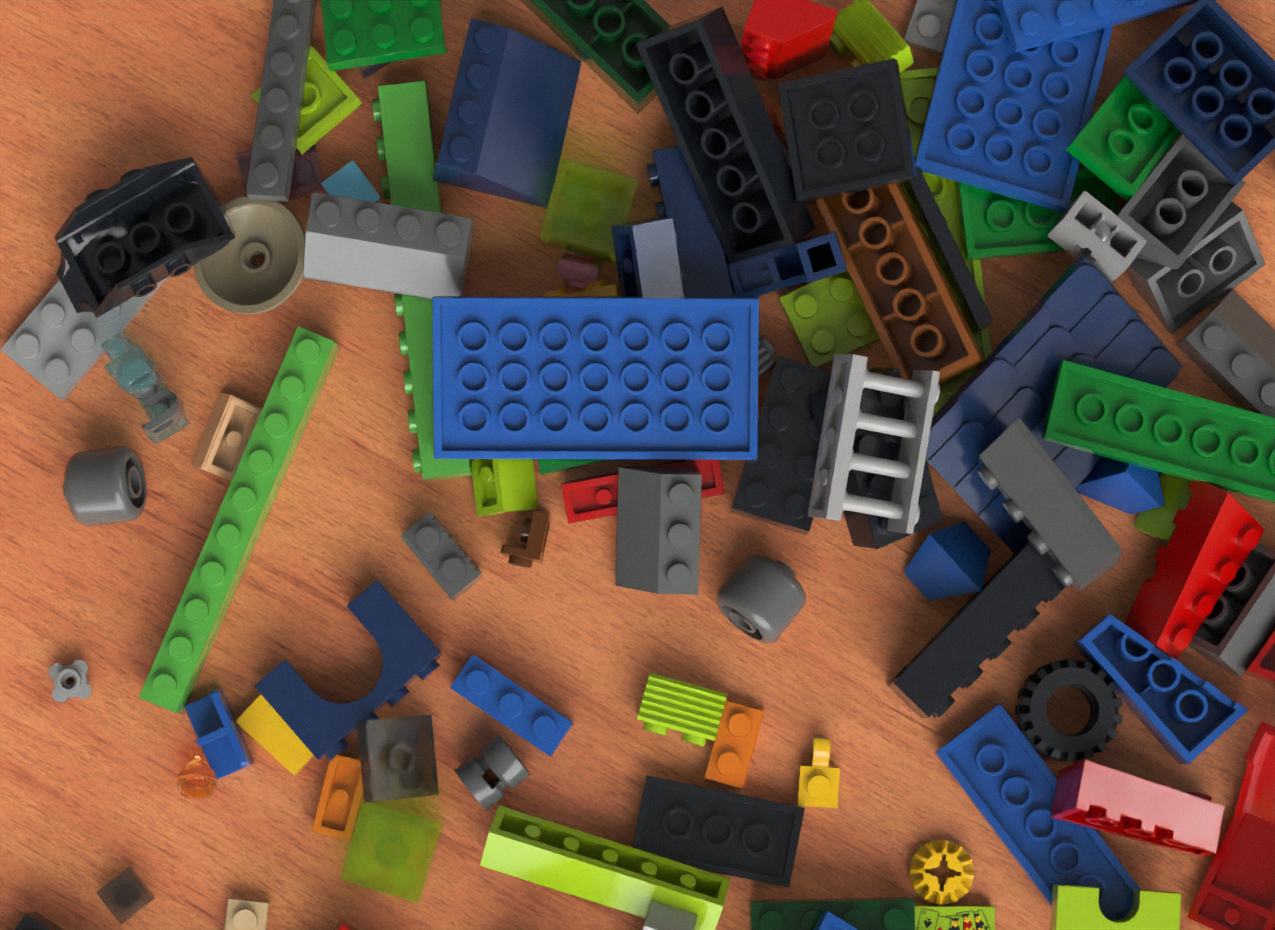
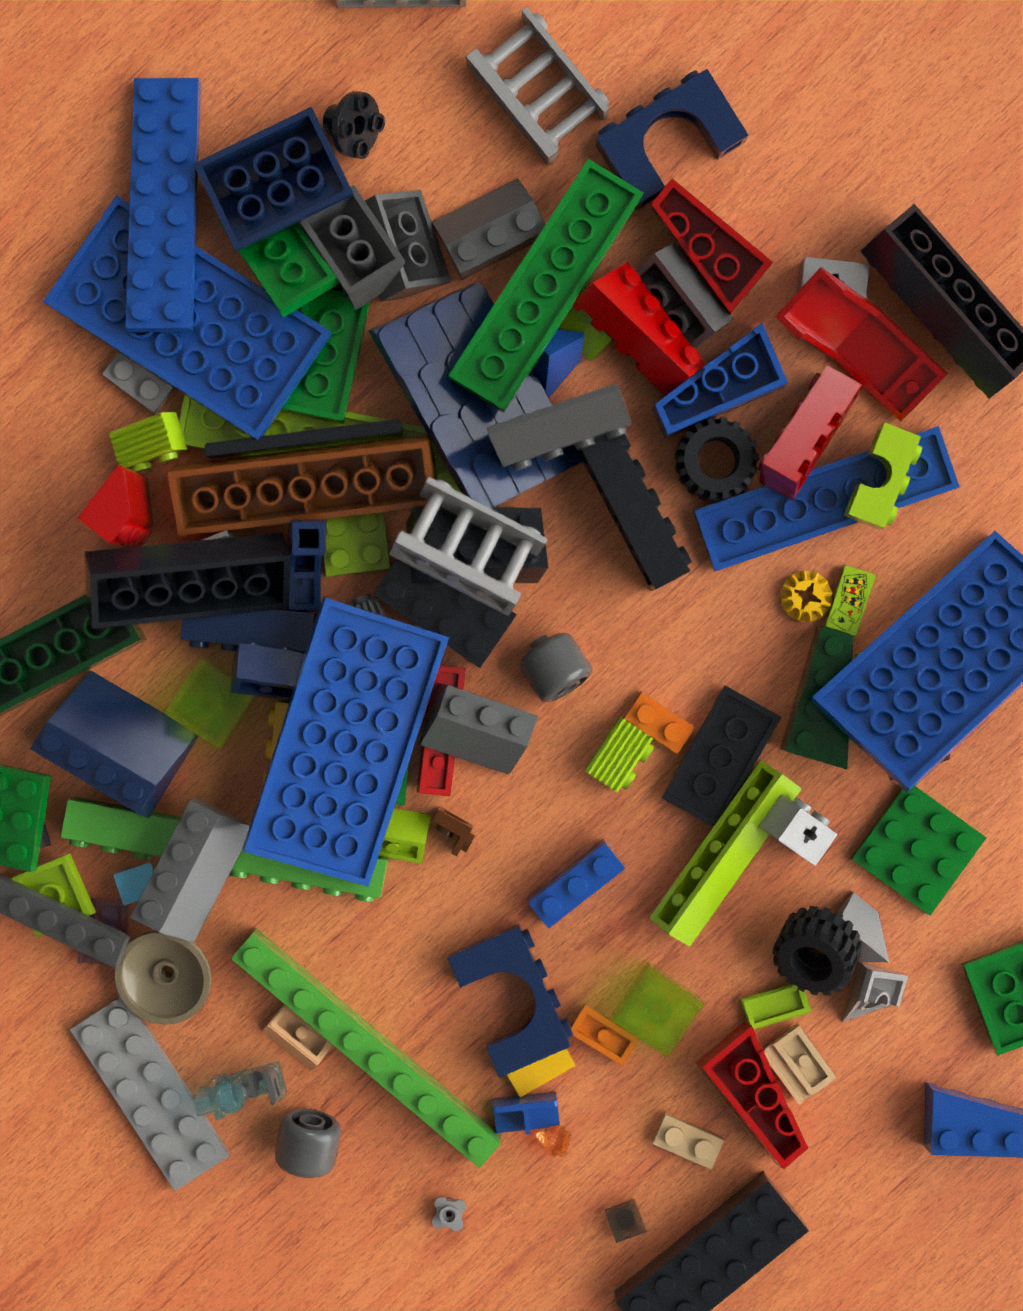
camera: 70 degrees left, 5 degrees up
(139, 234) = (120, 1058): black slope -> none
(397, 758) = (588, 984): clear smoke plate -> none
(442, 556) = (444, 901): dark grey brick -> none
(504, 764) = (619, 903): dark grey wheel -> none
(579, 269) = (255, 726): clear pink plate -> none
(817, 782) = (707, 668): yellow plate -> none
(847, 130) = (214, 484): black plate -> none
(949, 563) = (575, 512): blue slope -> none
(1098, 233) = (359, 313): light grey brick -> none

